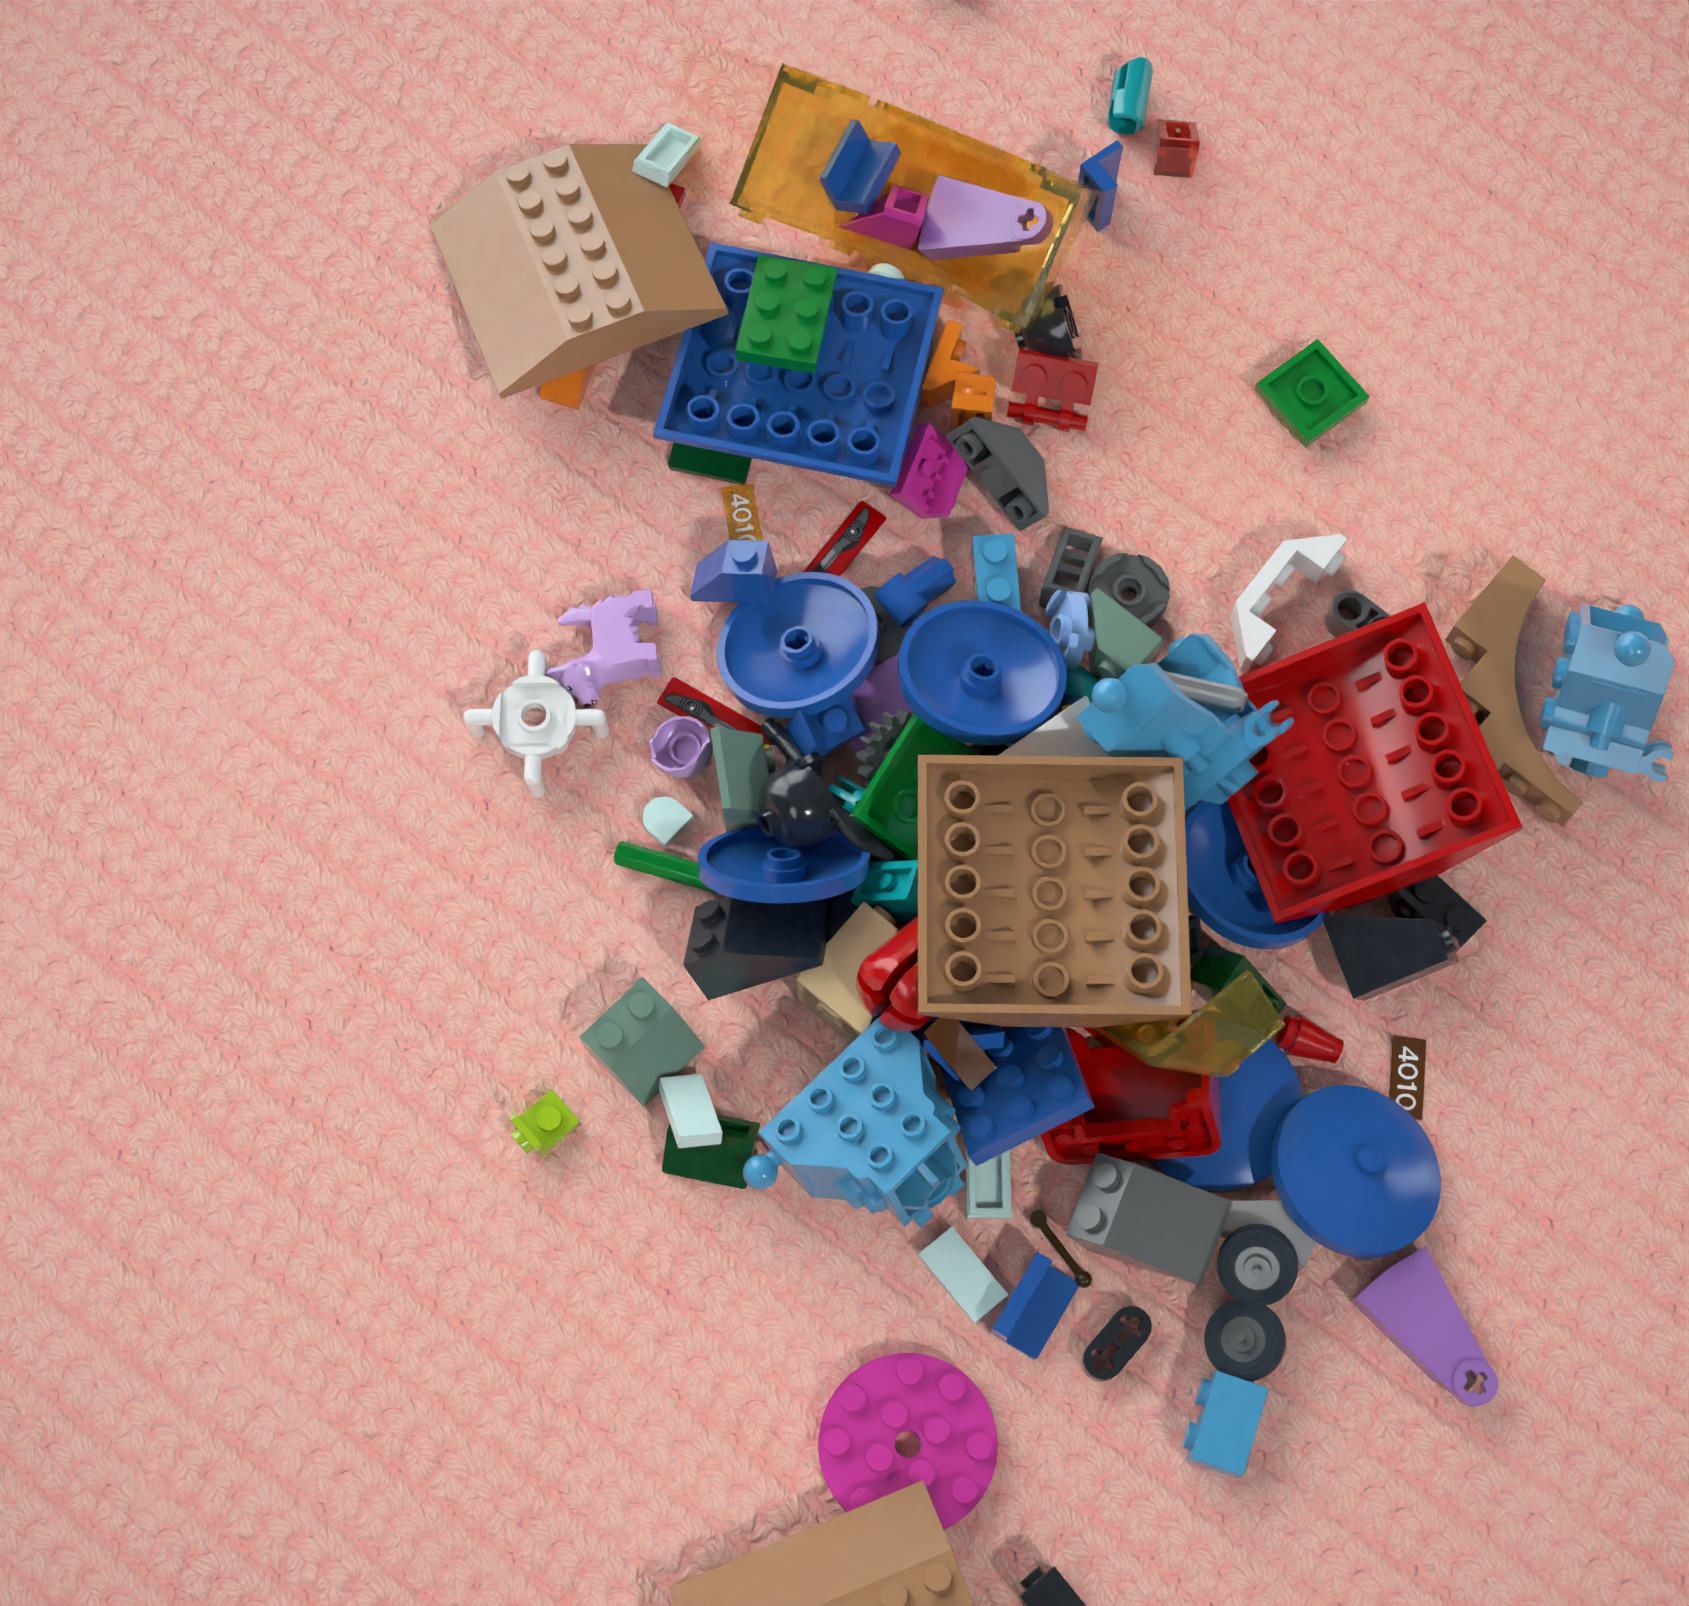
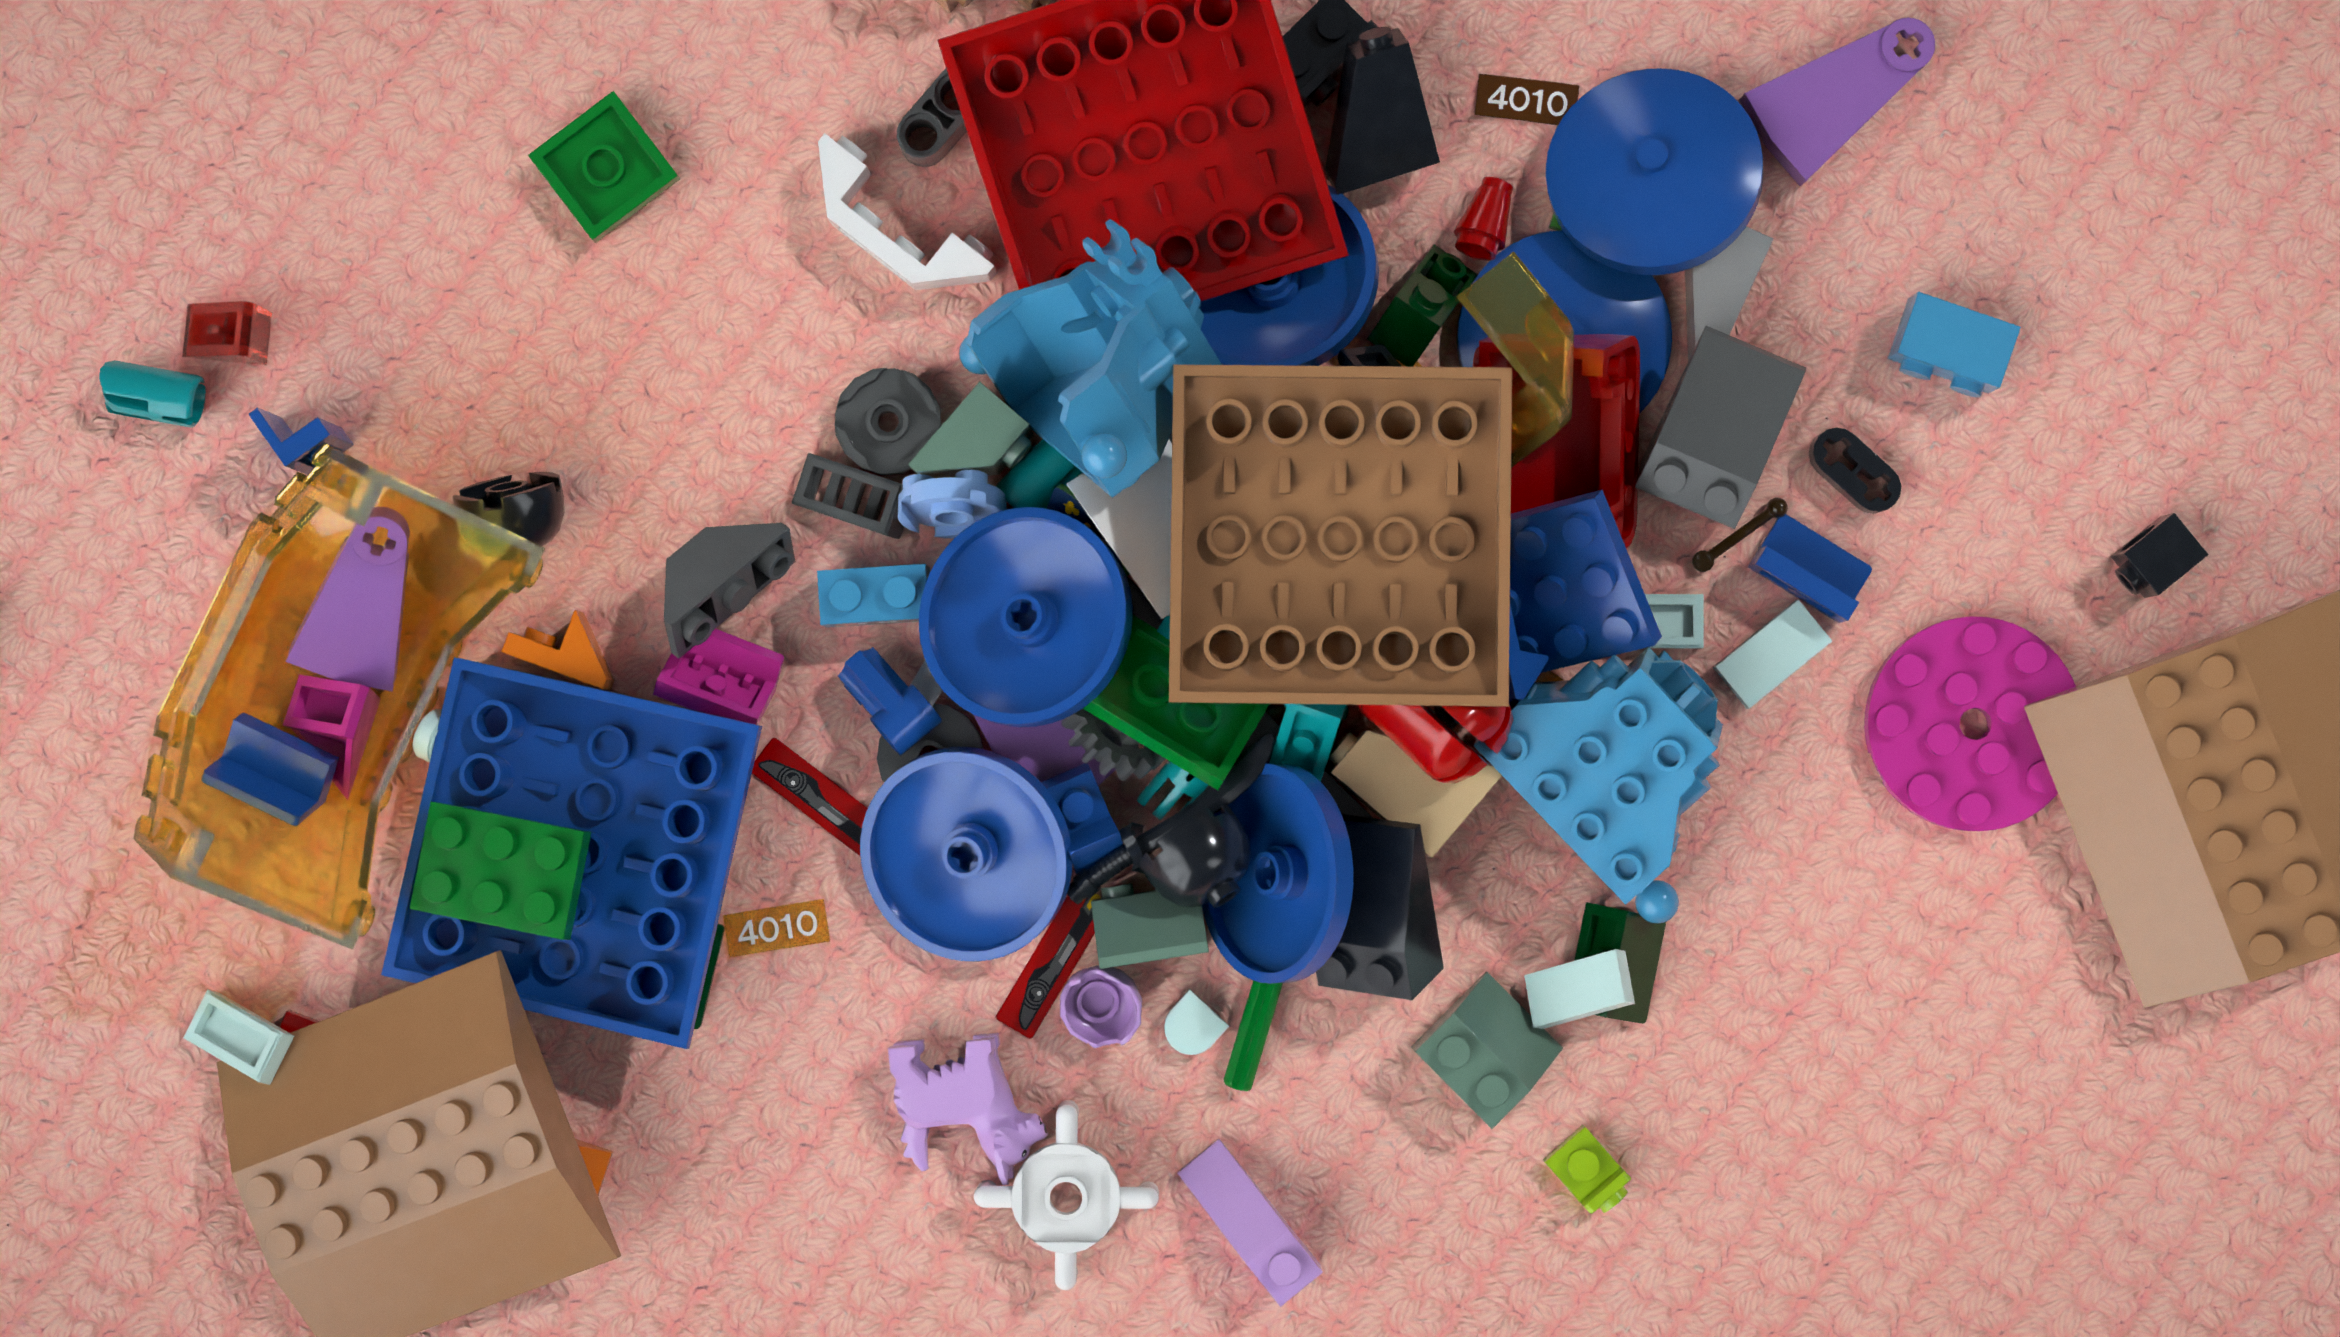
camera: 90 degrees left, 15 degrees up
(509, 862) = (1250, 1222): none -> lavender slope
(736, 573) = (865, 937): blue slope -> none
(960, 1051) = (1529, 648): reddish brown sticker -> none
(972, 398) = (620, 619): orange slope -> none
(1052, 378) = (588, 508): red plate -> none
(1210, 693) = (1049, 346): light grey axle -> none
(1245, 1340) = (1855, 316): black wheel -> none
(1257, 1264) = (1773, 297): black wheel -> none

